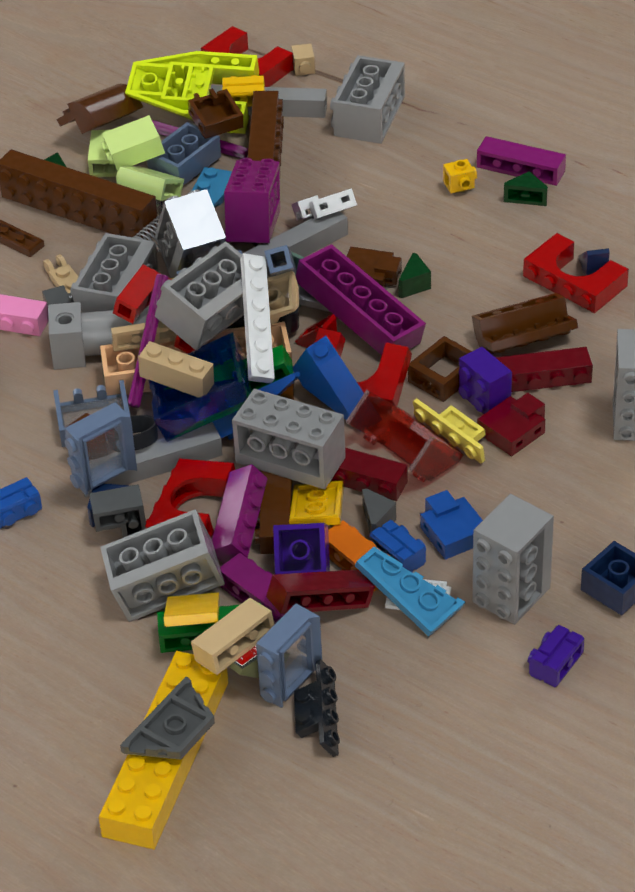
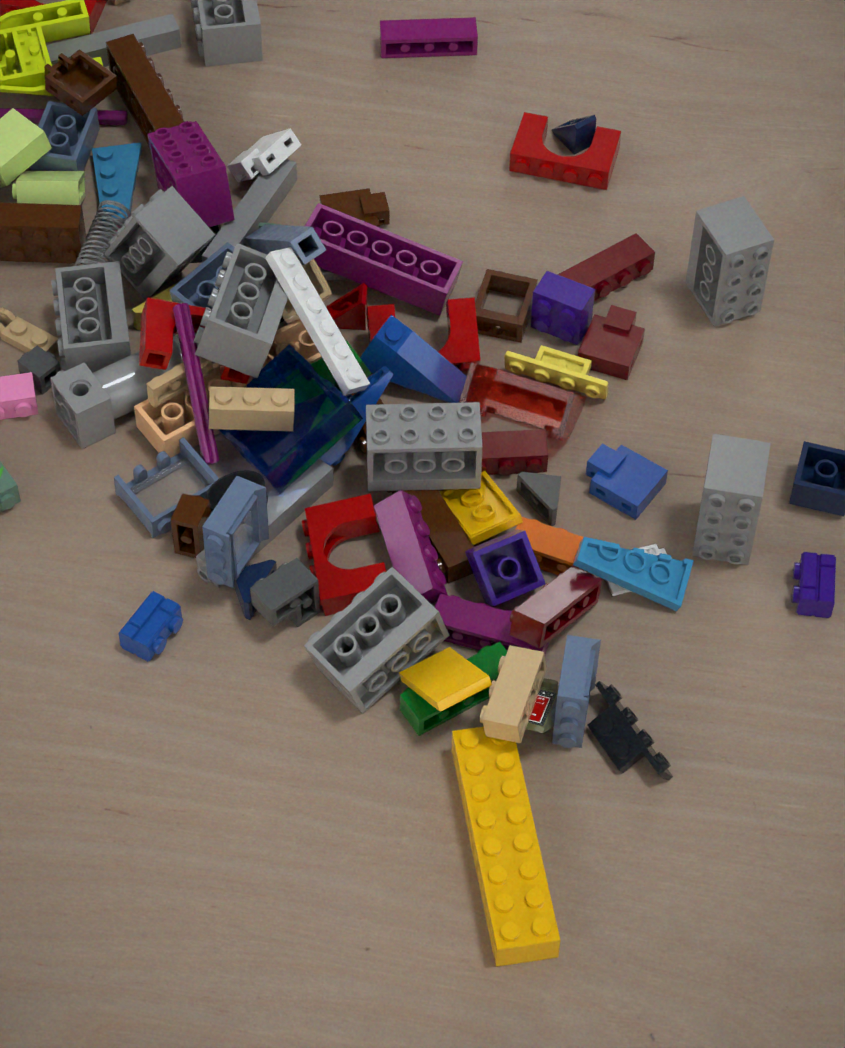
camera: 30 degrees left, 10 degrees up
(172, 725) = (514, 818): dark grey wing -> none
(243, 87) = (89, 39): yellow brick -> none
(399, 545) = (589, 521): blue brick -> none
(414, 278) = (408, 208): dark green slope -> none
(459, 176) = (378, 75): yellow brick -> none
(523, 323) = (554, 228): reddish brown brick -> none
(526, 190) = (457, 70): dark green slope -> none

